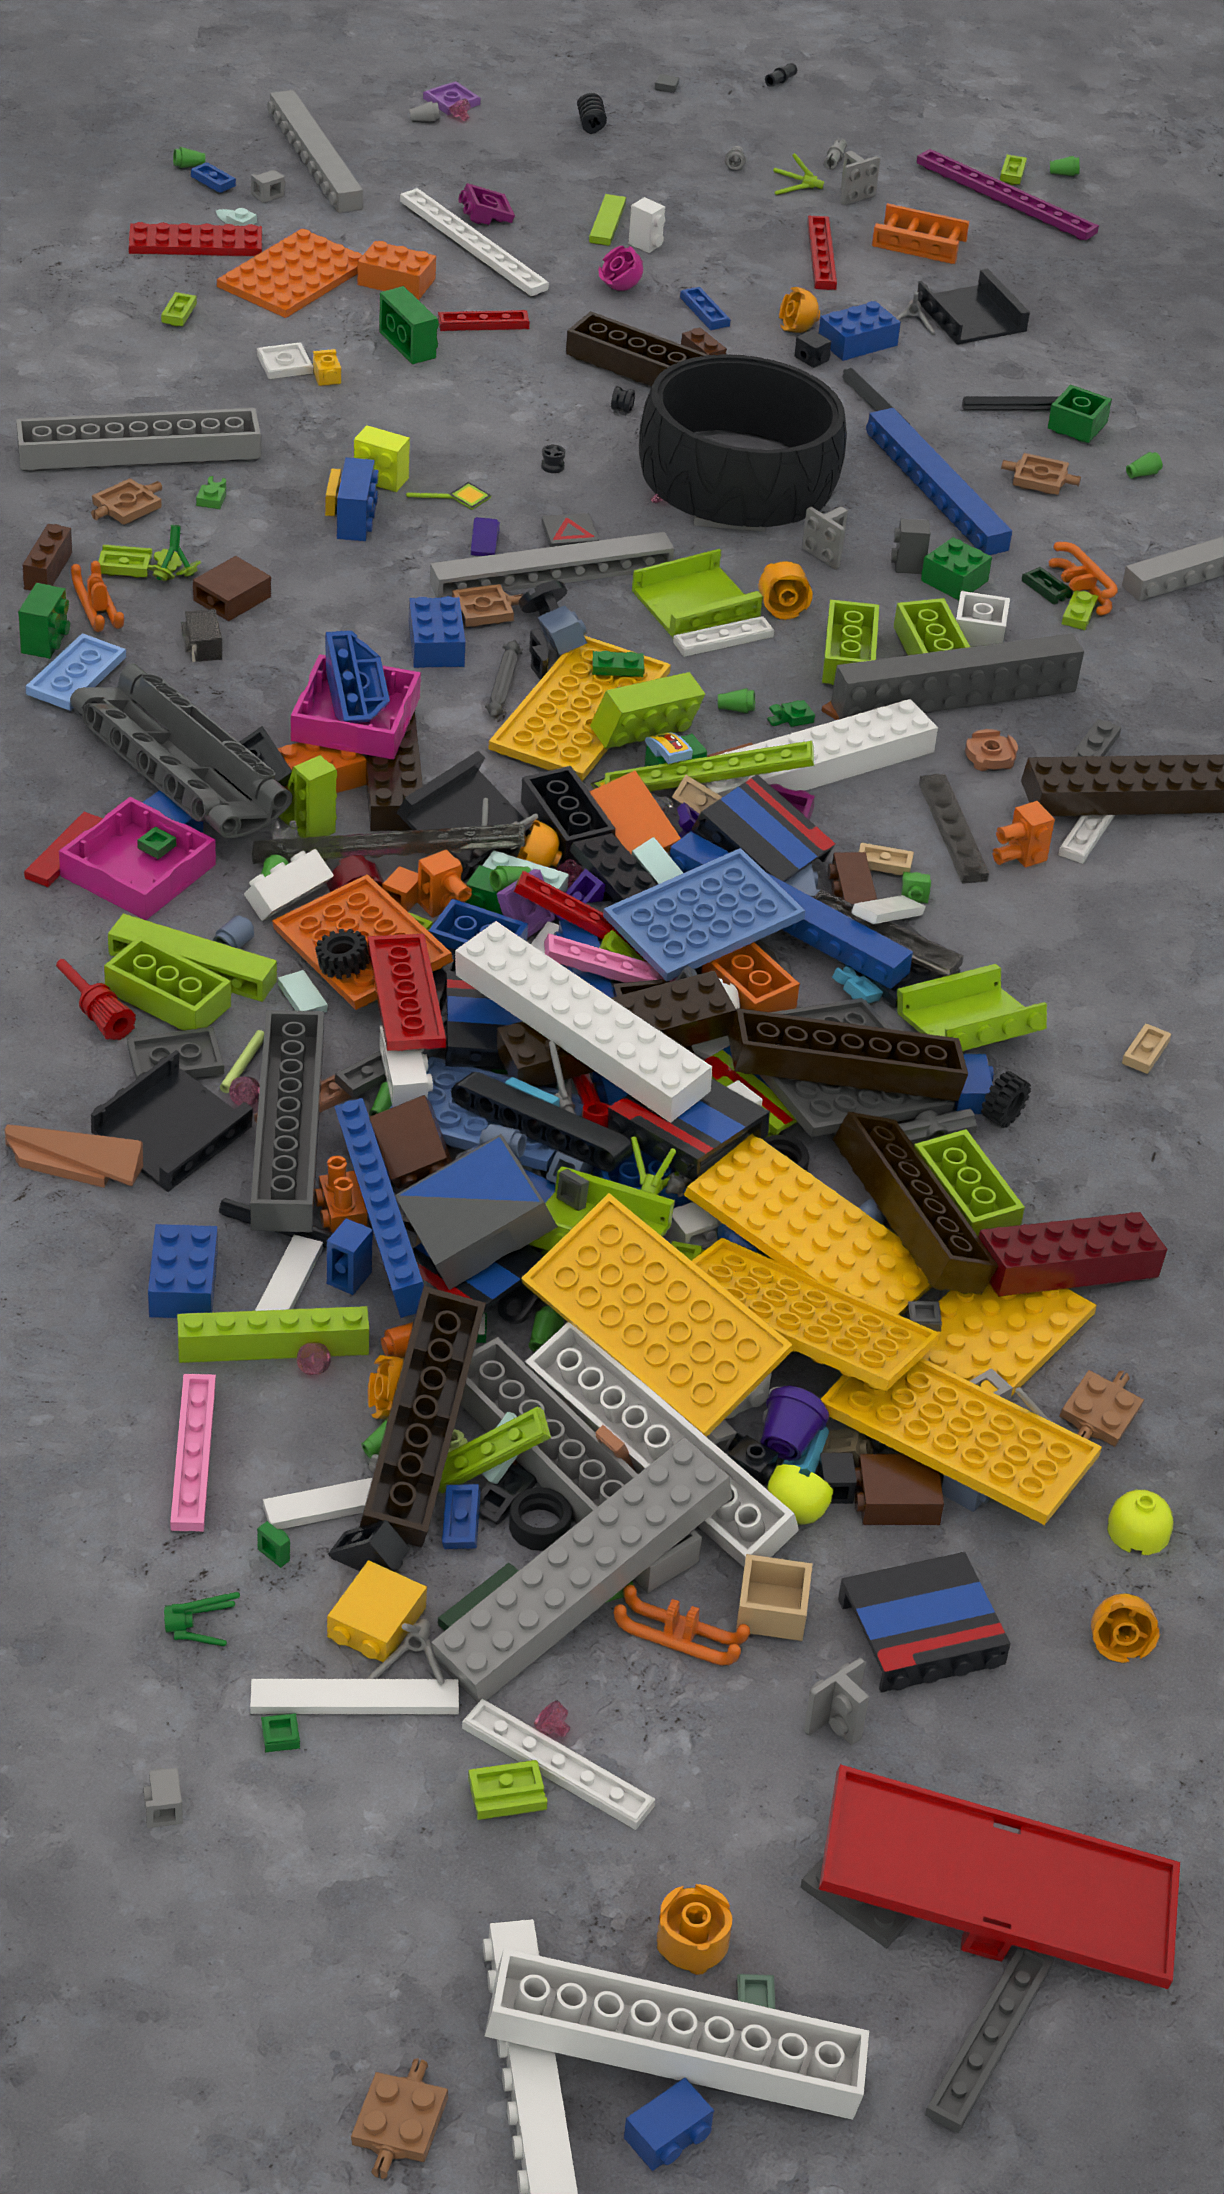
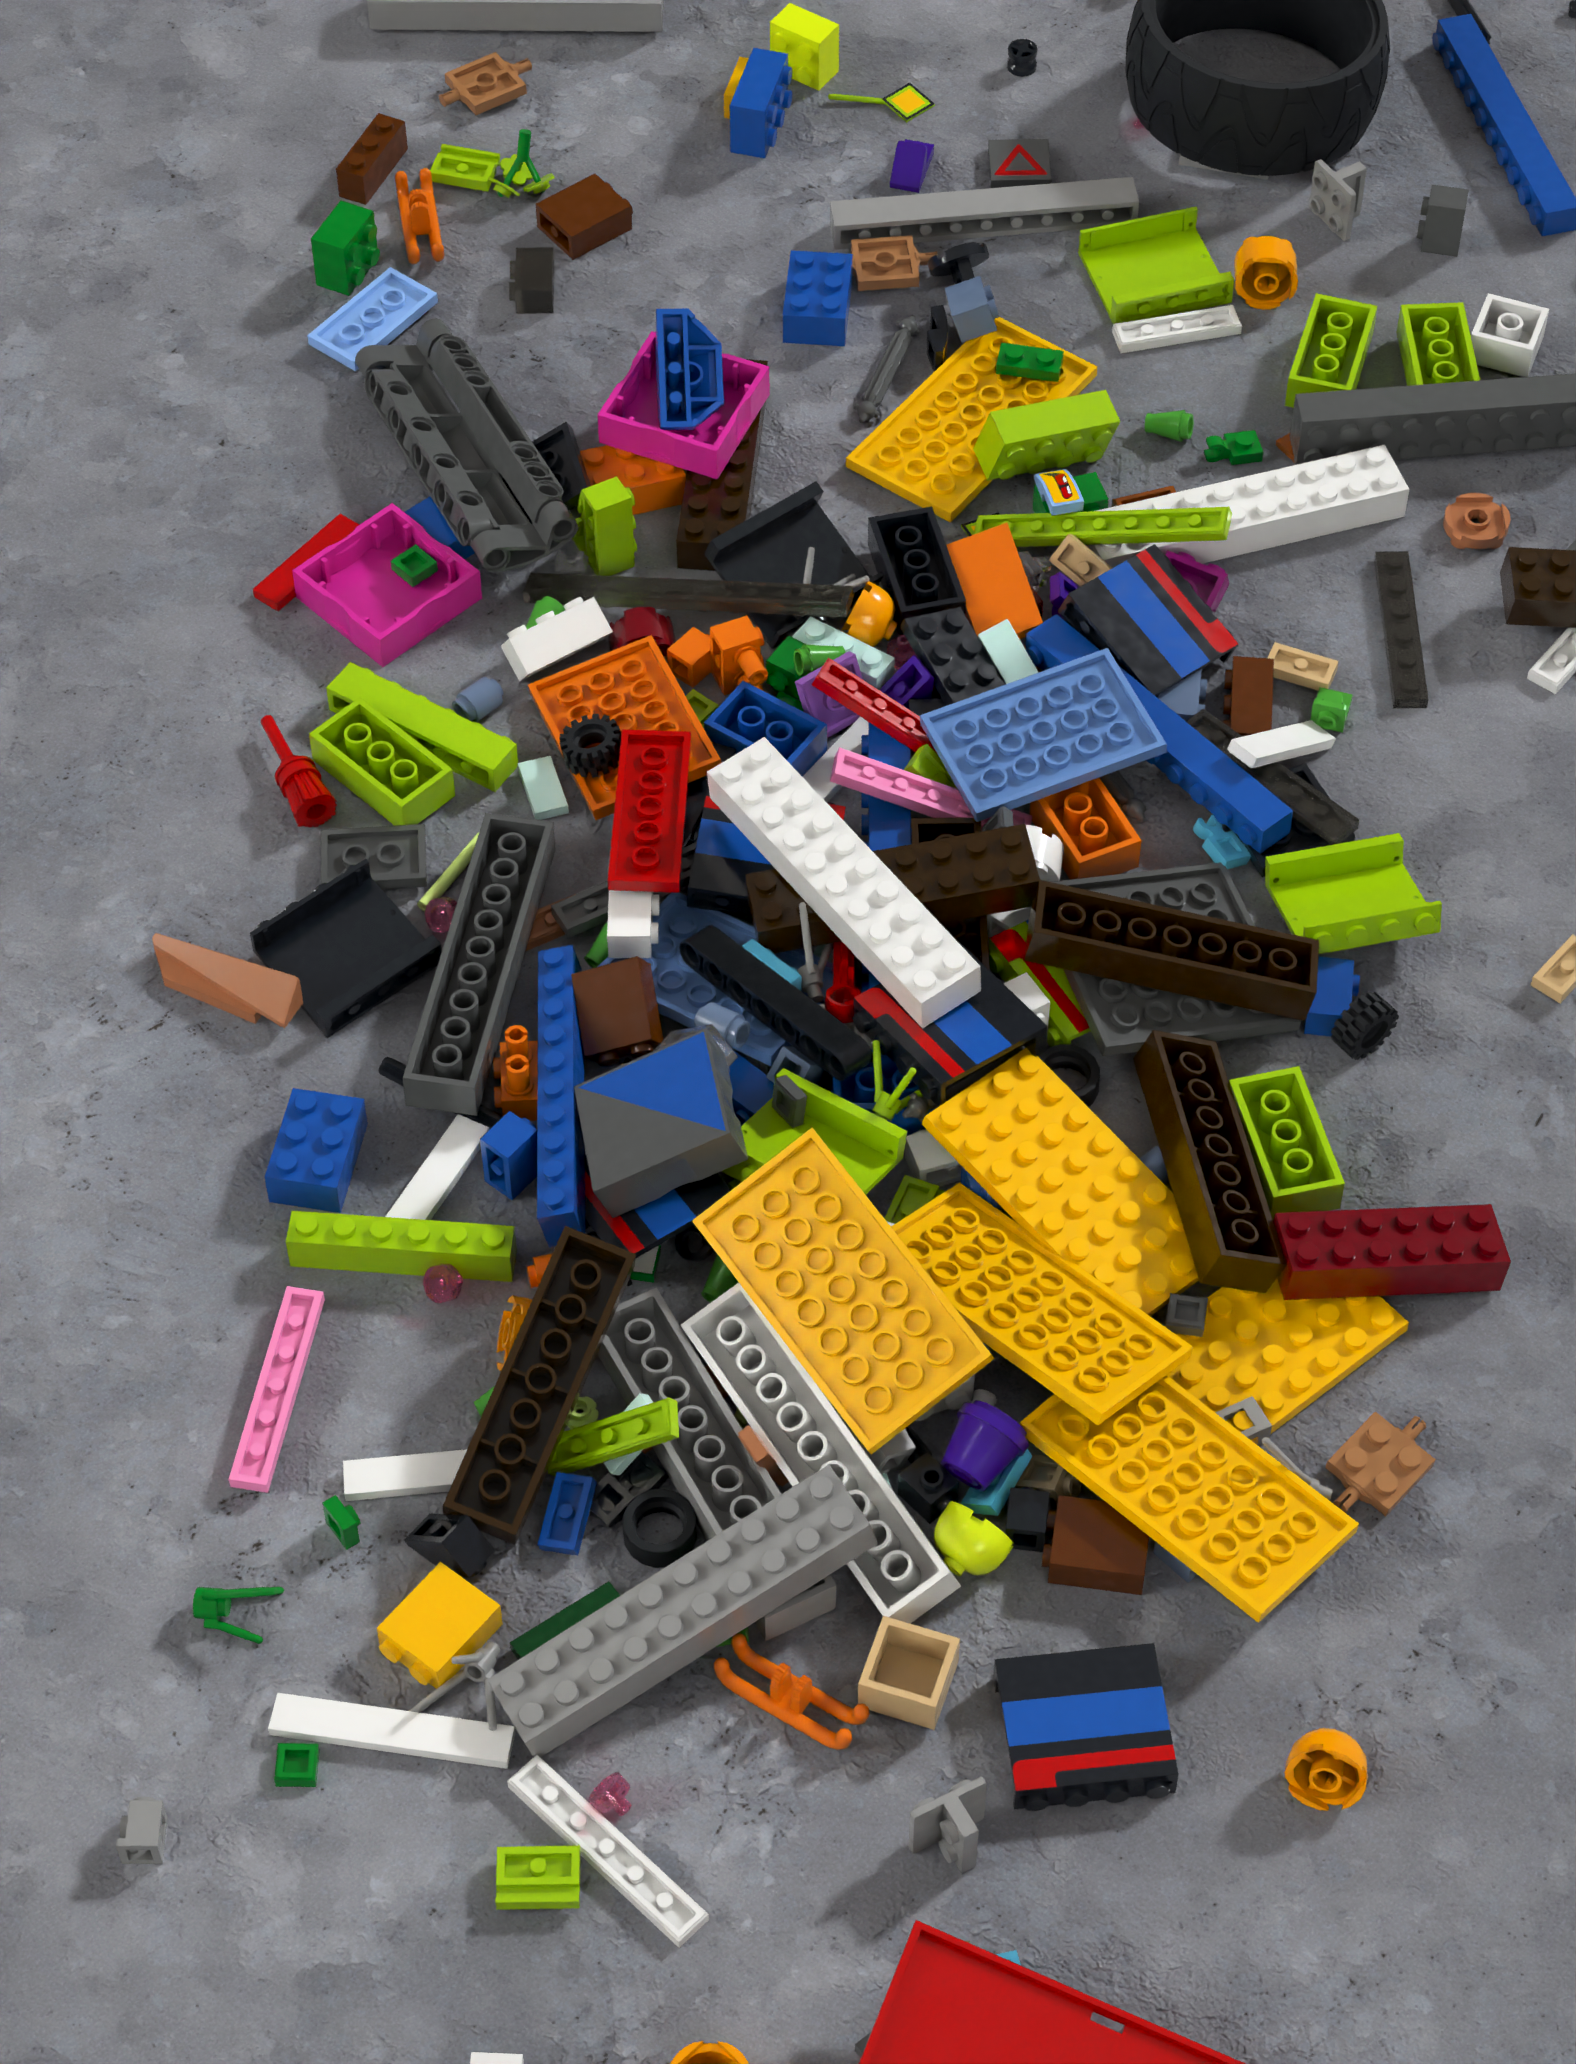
camera: 15 degrees right, 10 degrees up
(212, 494) = (593, 80): bright green plate -> none
(931, 1125) = (1266, 1053): dark grey piece -> none
(956, 568) = (1496, 255): green brick -> none
(1027, 836) = (1487, 655): orange brick -> none
(1140, 1522) = (1388, 1627): neon yellow cylinder -> none

